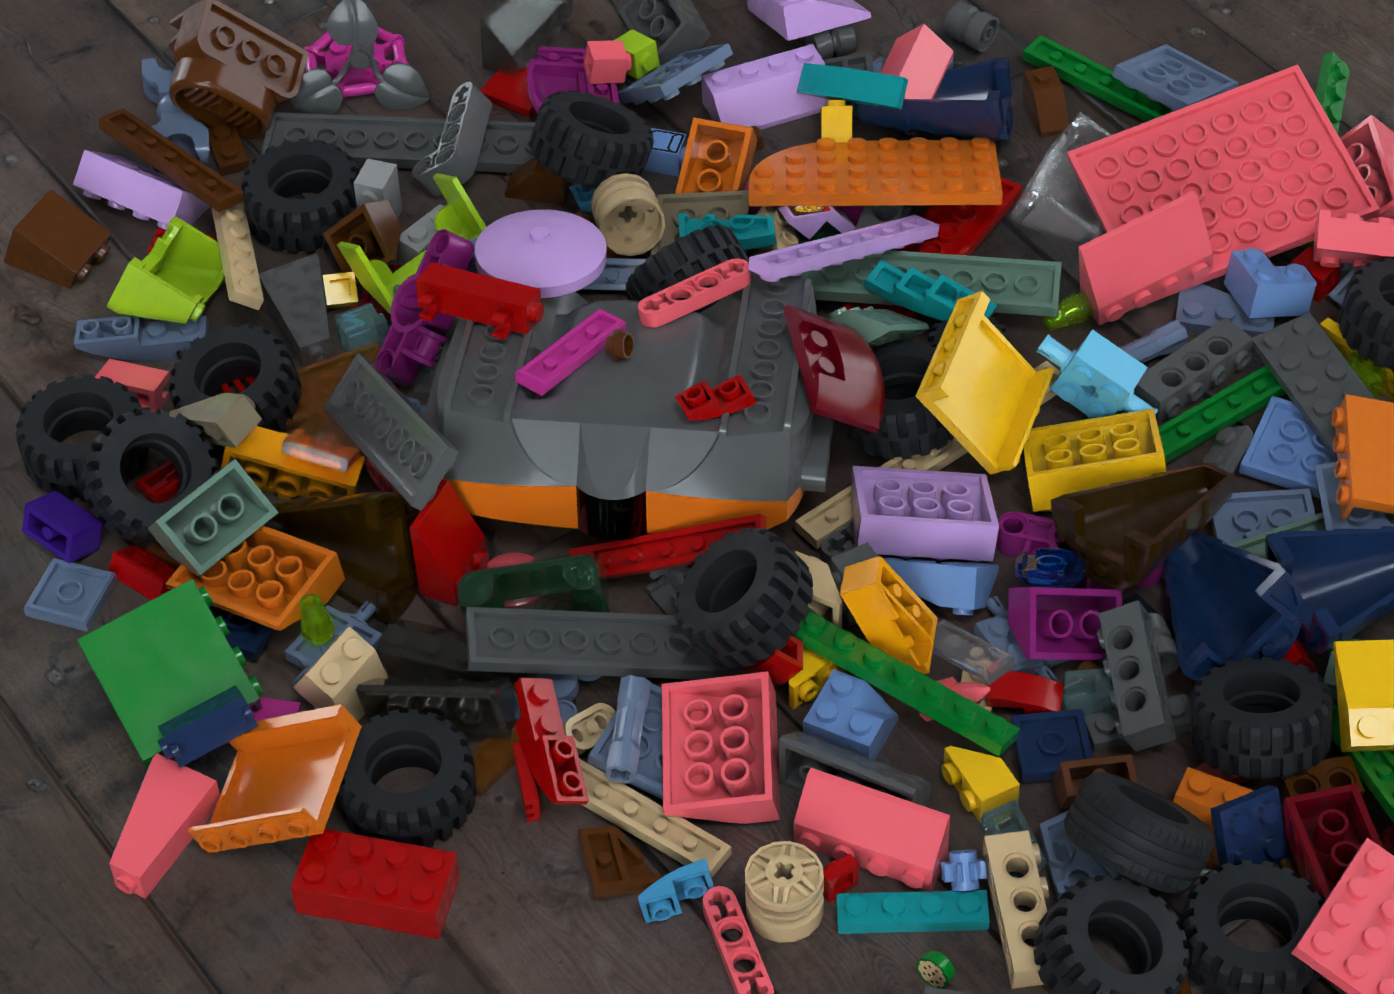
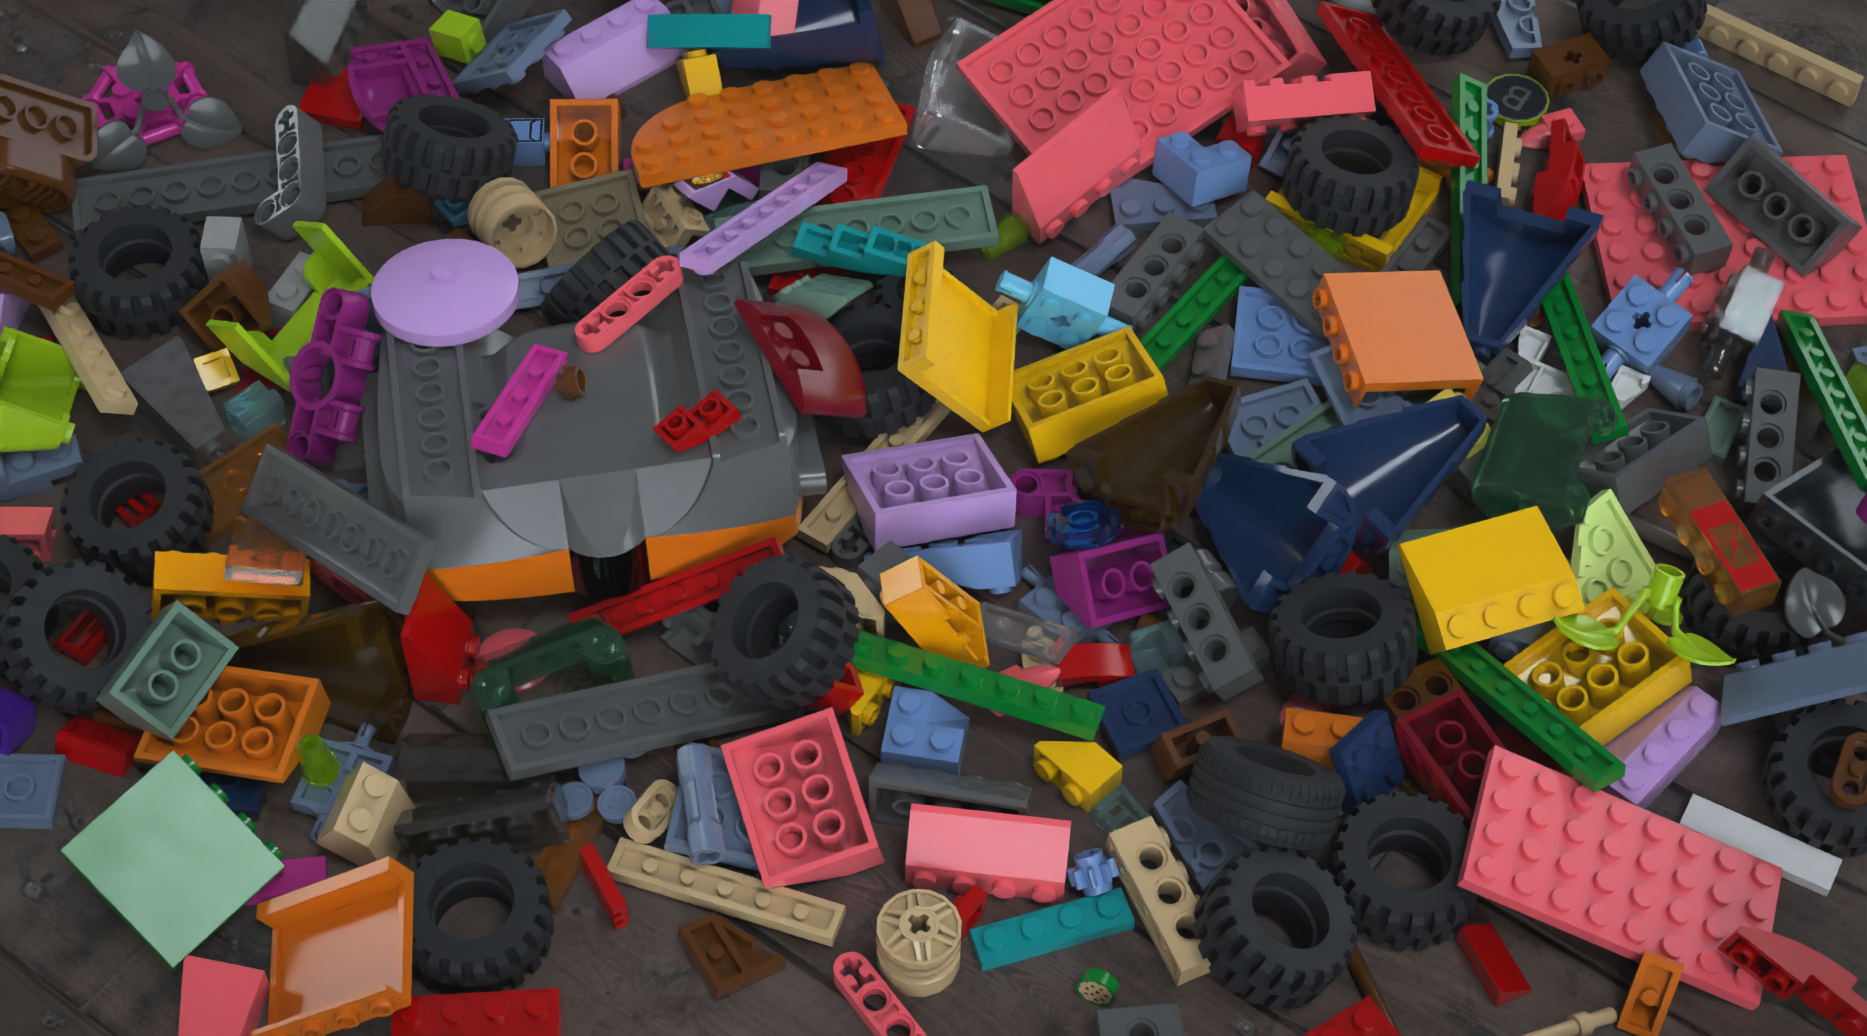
camera: 20 degrees left, 5 degrees up
(206, 726) = (237, 913): dark blue brick -> none
(222, 418) = (144, 554): dark tan slope -> none
(478, 299) = (399, 360): red brick -> none
(544, 744) = (622, 850): red slope -> none
(606, 62) = (432, 52): coral brick -> none
(663, 897) = (792, 981): dark azure slope -> none
(750, 230) = (656, 213): teal wing -> none

